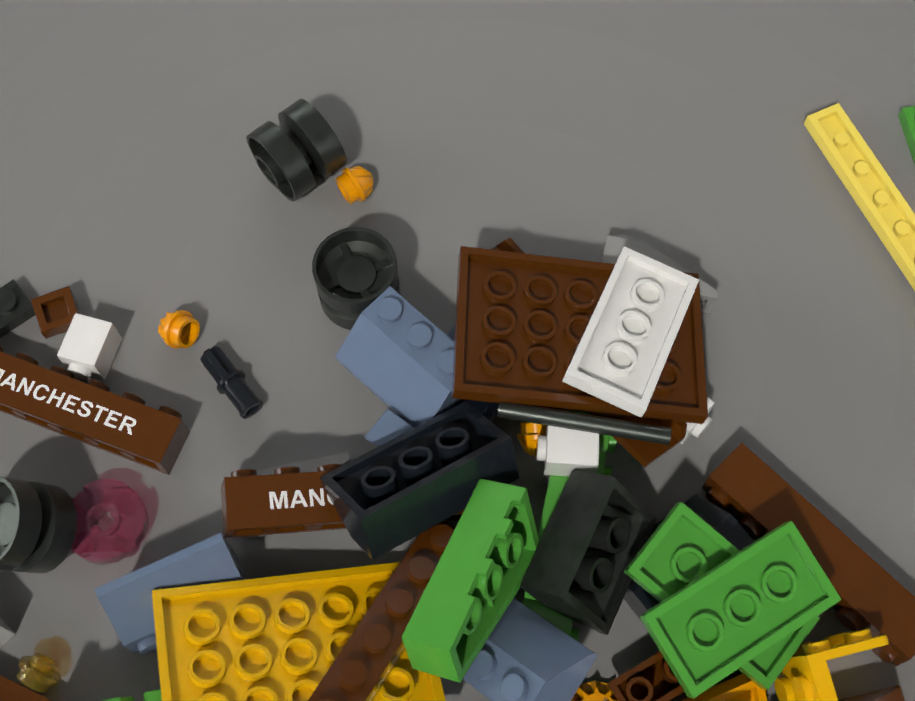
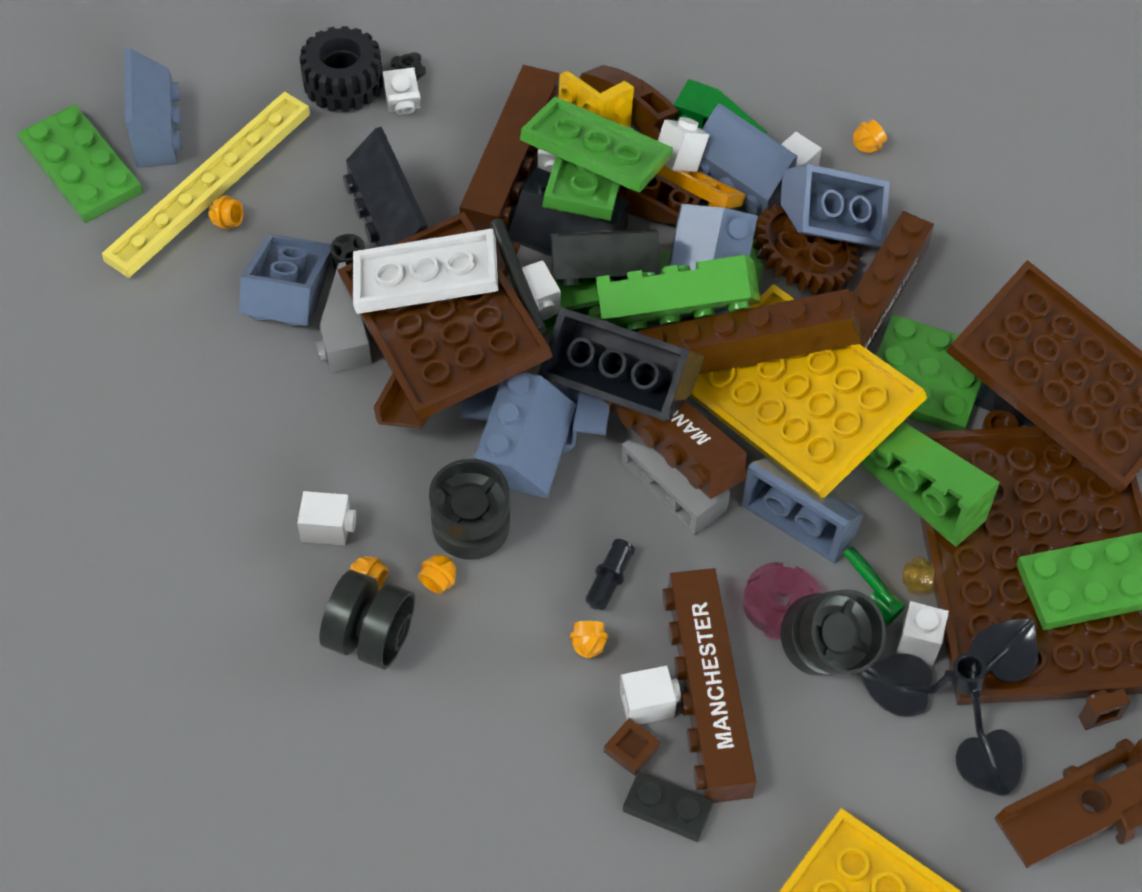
camera: 120 degrees left, 10 degrees down
(36, 612) = (887, 602): none -> green plant
(316, 232) = (437, 573): none -> light orange plate
(430, 171) = (325, 518): none -> white brick
(735, 249) = (284, 280): none -> sand blue slope
(738, 310) = (343, 247): none -> pearl dark grey wheel
(786, 378) = (382, 192): none -> black slope
(847, 230) = (226, 212): none -> light orange plate

